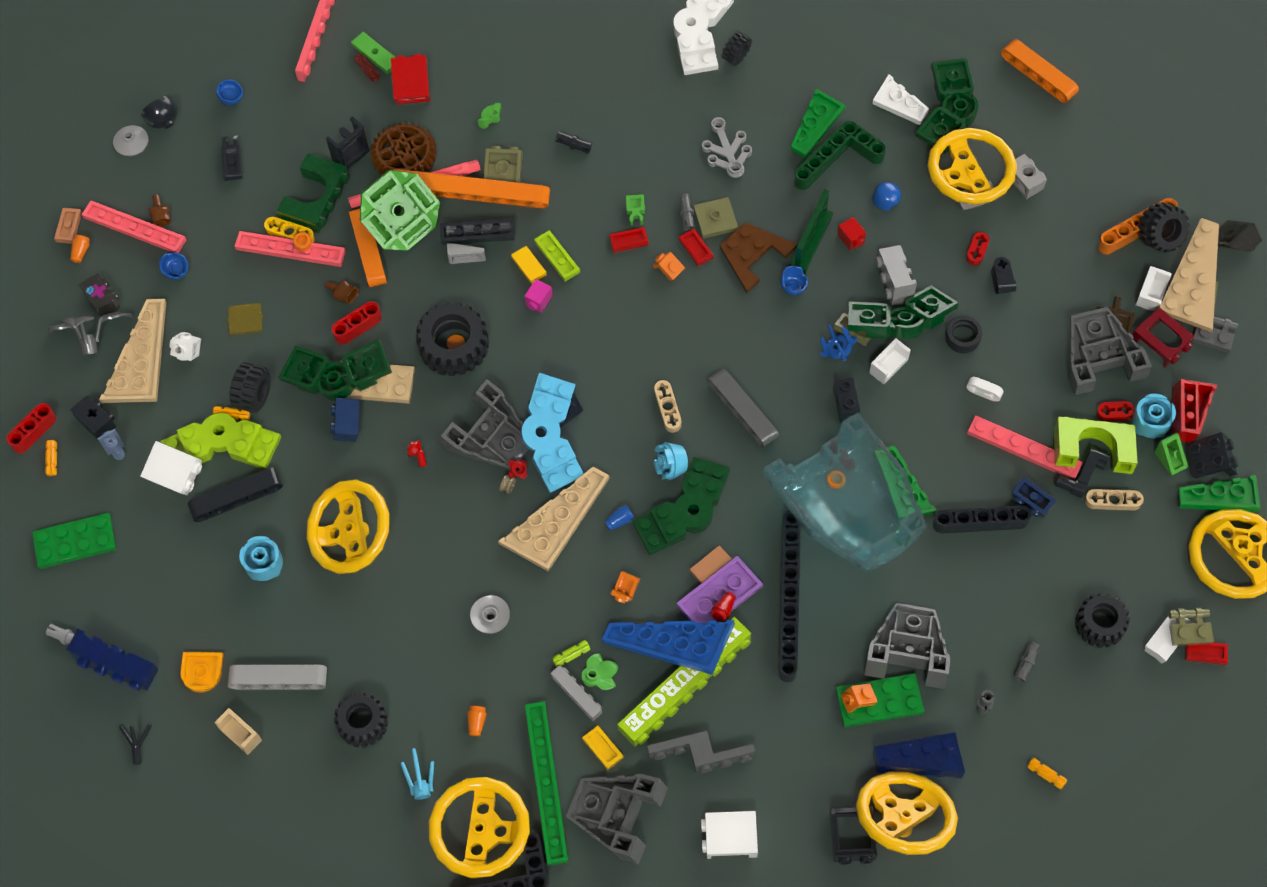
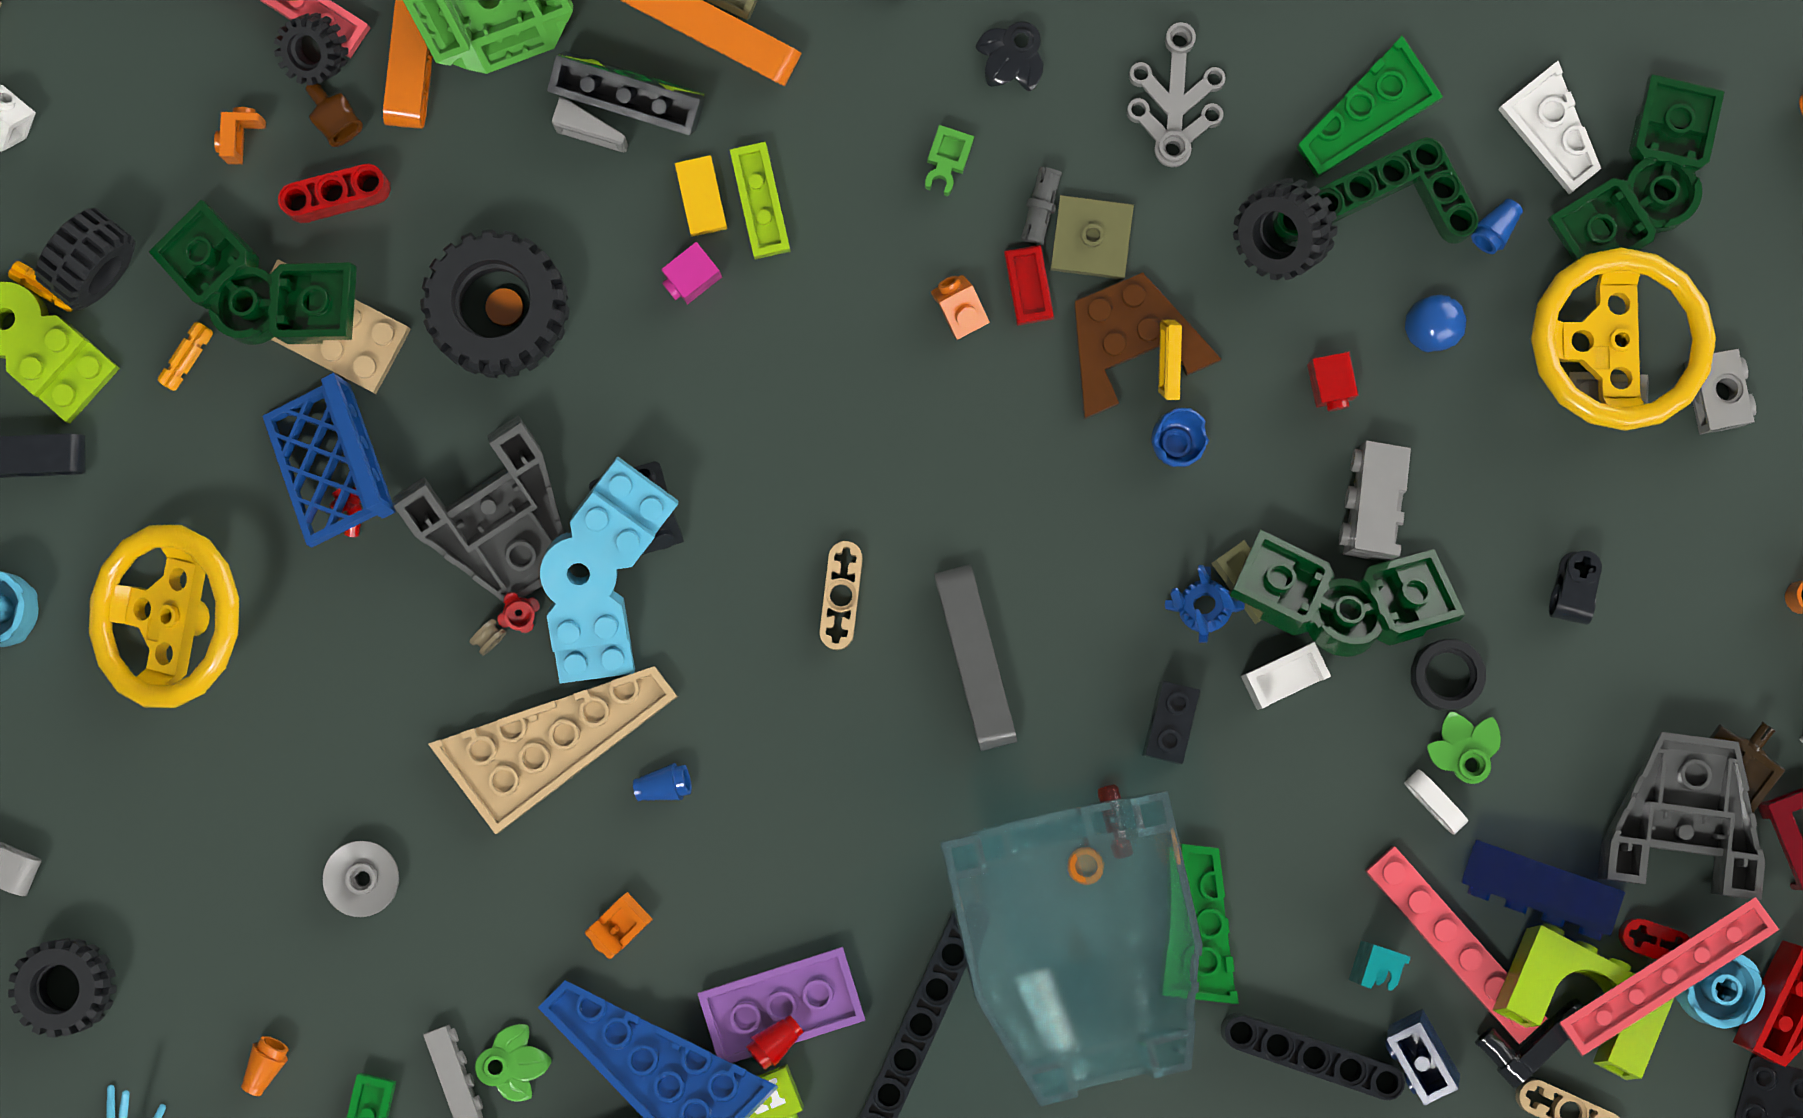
camera: 20 degrees right, 20 degrees up
(245, 319) = (136, 96): clear yellow piece -> none
(299, 309) = (230, 138): none -> orange bracket
(311, 418) = (185, 356): none -> light orange axle
(312, 269) = (294, 56): none -> black tyre
(345, 419) = (240, 389): dark blue brick -> none
(412, 423) = (358, 453): none -> blue fence
(571, 653) = (476, 1007): lime axle -> none
(628, 239) = (909, 218): red tile -> none
(646, 160) = (1010, 61): none -> black plate
(670, 460) = (798, 716): medium azure cone -> none
(670, 521) = (831, 792): dark green plate -> none
(710, 564) = (790, 940): nougat tile -> none
(774, 250) = (1170, 359): none -> yellow tile
(786, 177) = (1264, 247): none -> black tyre
(813, 234) = (1254, 355): dark green fence -> none
(894, 148) = (1497, 227): none -> blue cone
(980, 249) = (1551, 499): red beam -> none
(985, 361) = (1465, 741): none -> bright green plate
(990, 463) = (1373, 966): none -> teal hinge
(1052, 403) = (1544, 889): none -> clear blue wedge
(1126, 413) = (1669, 976): none -> coral plate
(1171, 454) = (1716, 1073): bright green slope -> none

